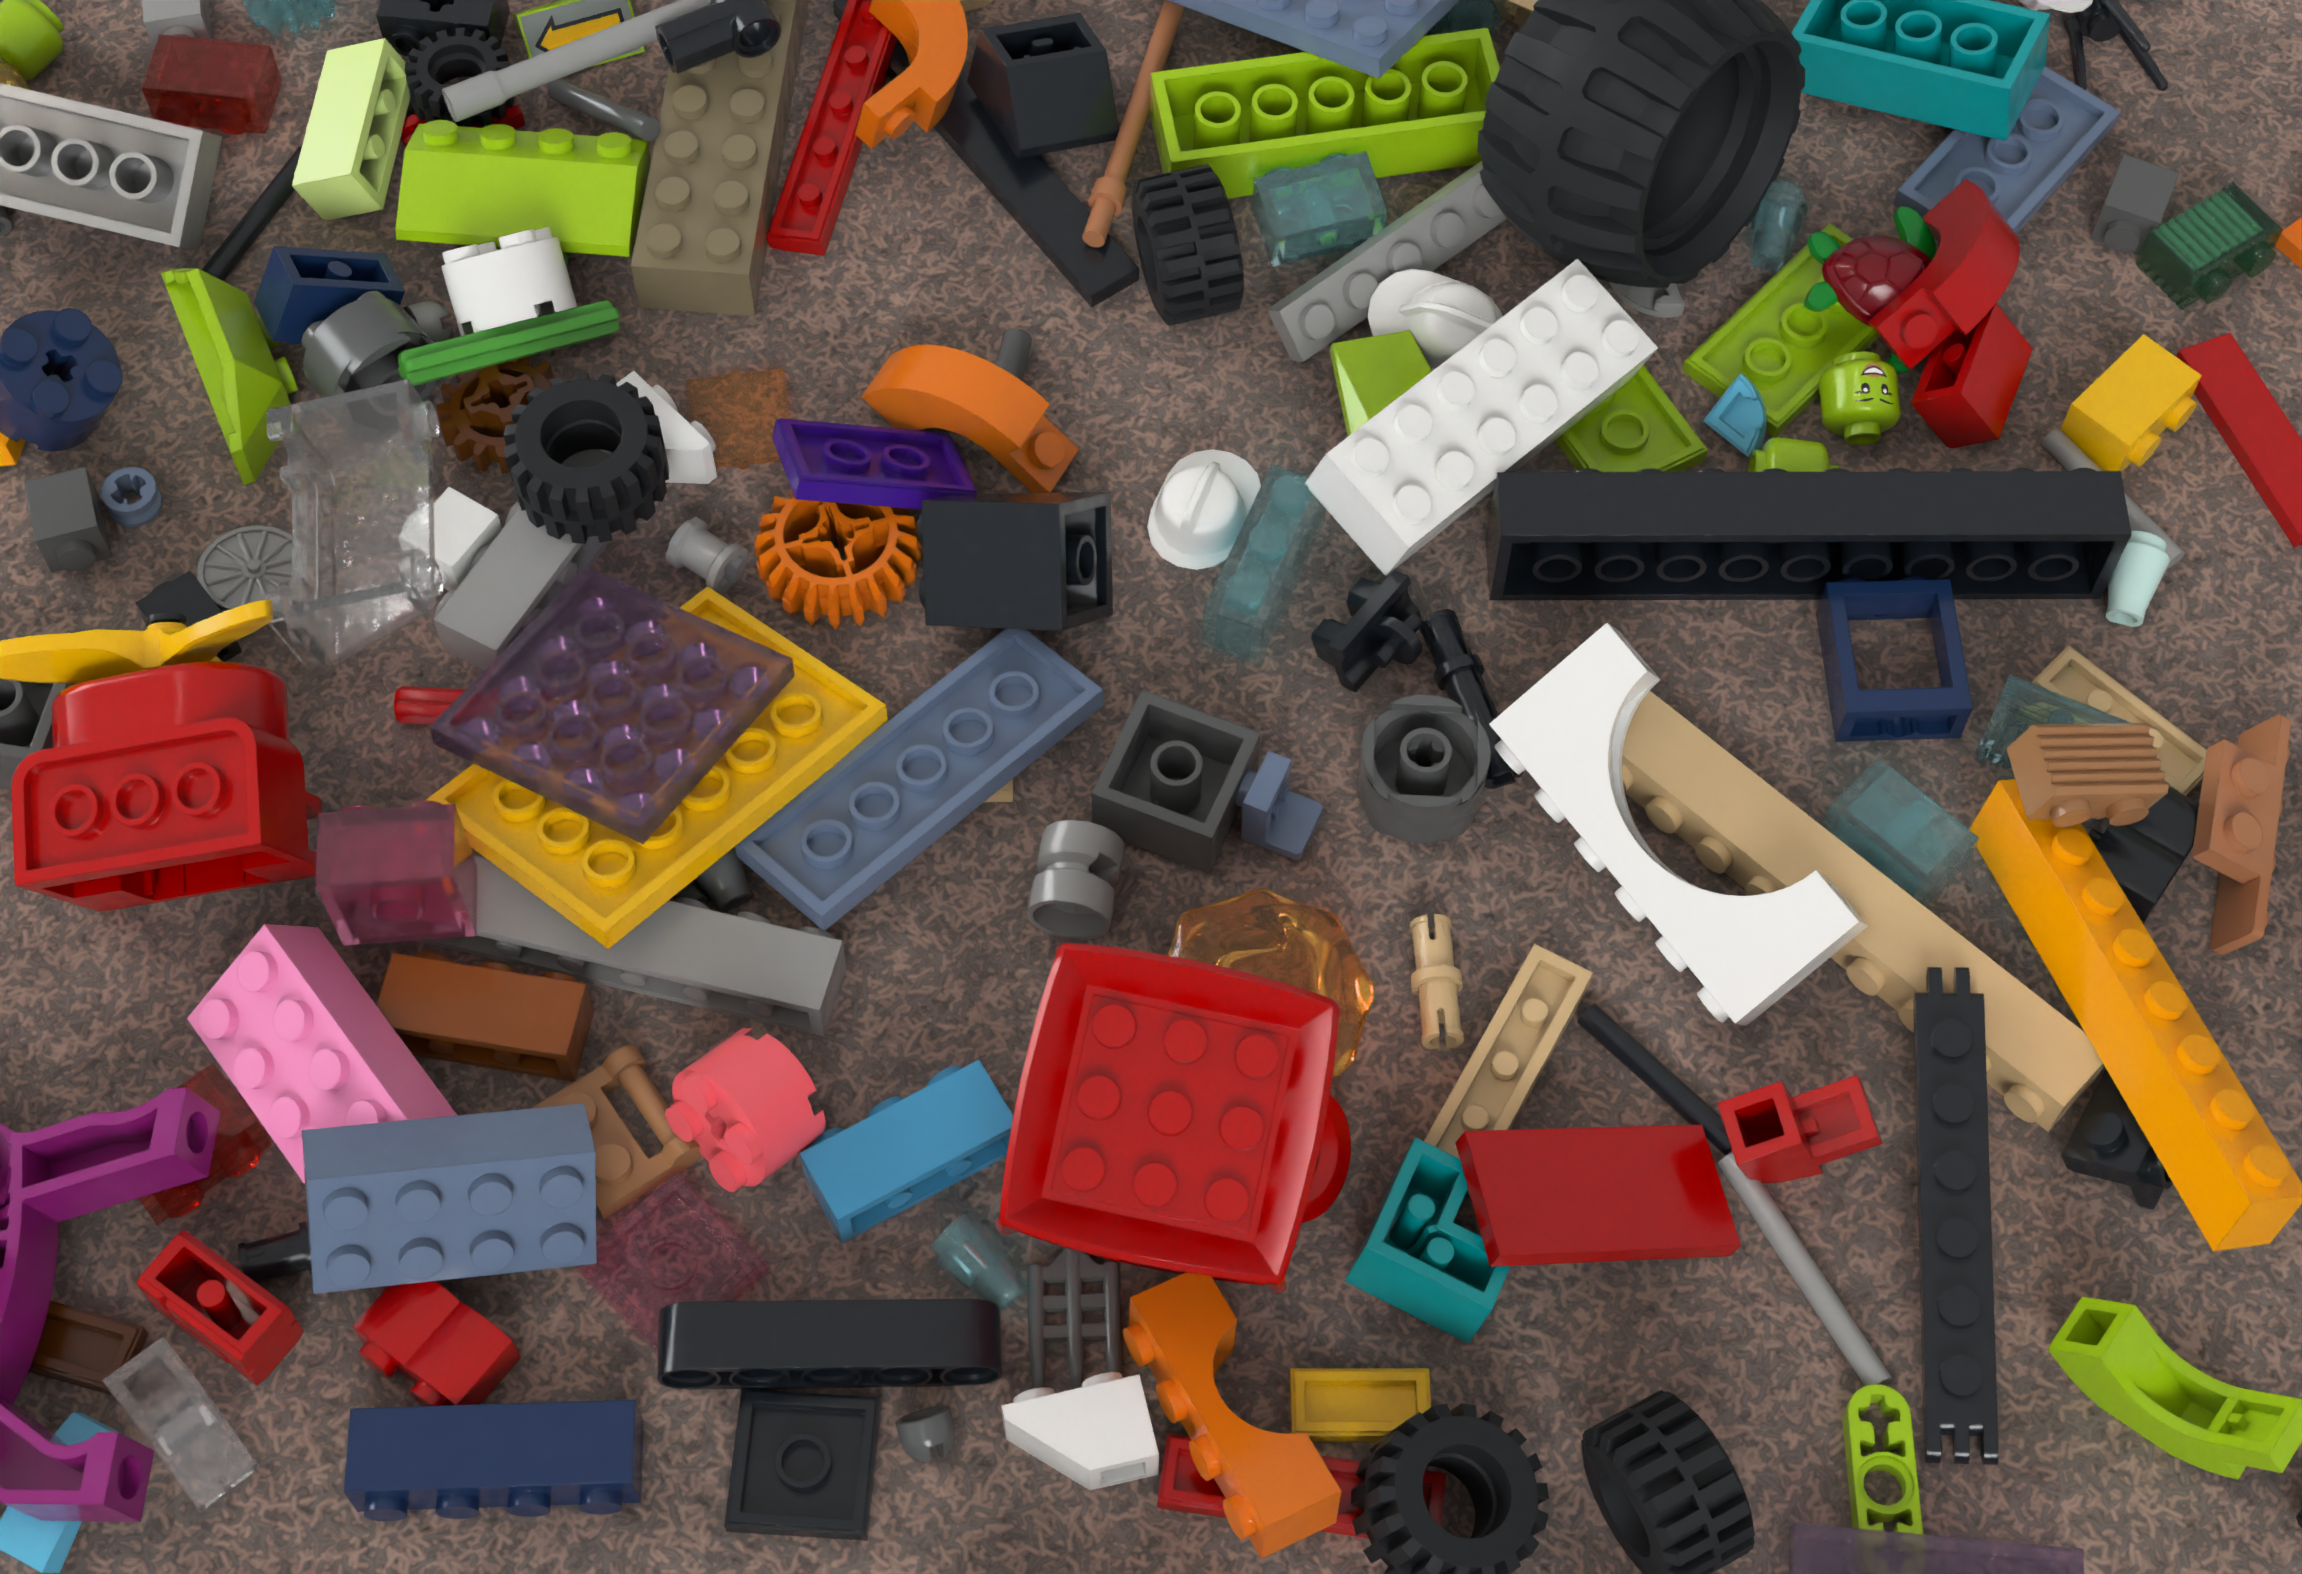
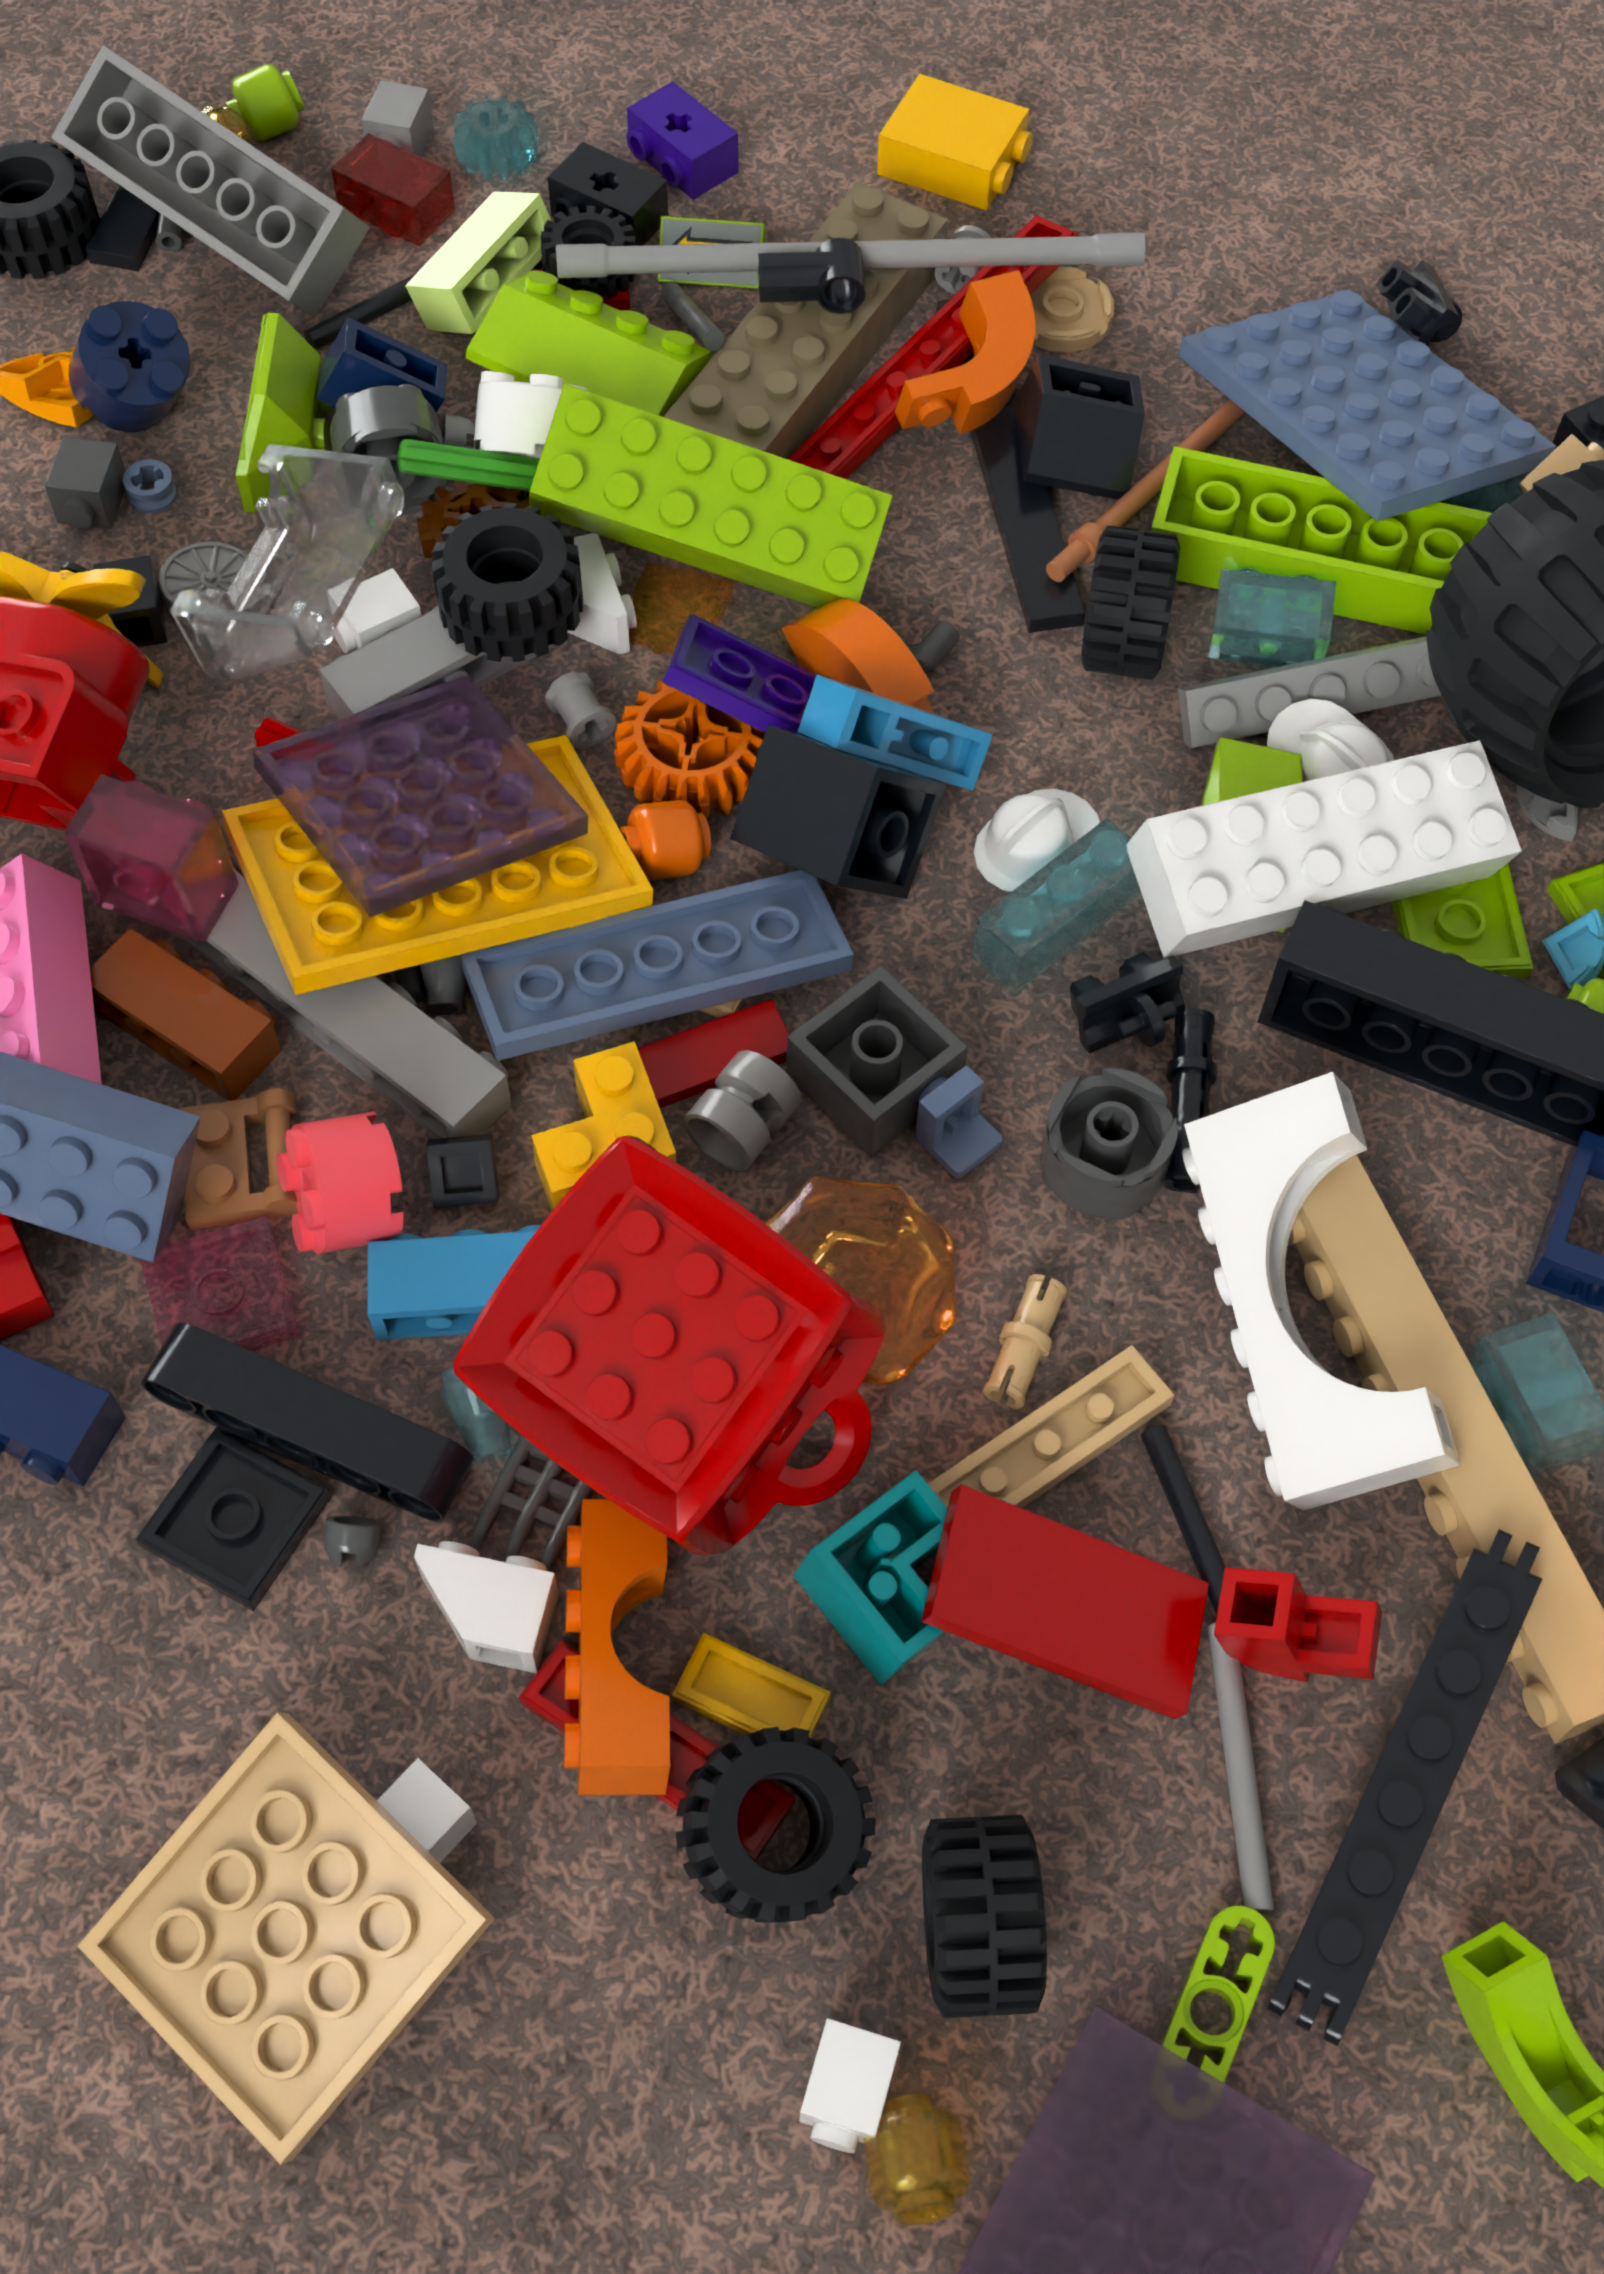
camera: 25 degrees right, 0 degrees up
(736, 299) = (707, 500): none -> lime brick
(842, 1048) = (462, 1170): none -> black plate
(865, 647) = (667, 838): none -> orange head
(978, 956) = (615, 1104): none -> yellow brick
(998, 851) = (695, 1057): none -> red tile
(1035, 461) = (894, 733): none -> dark azure slope

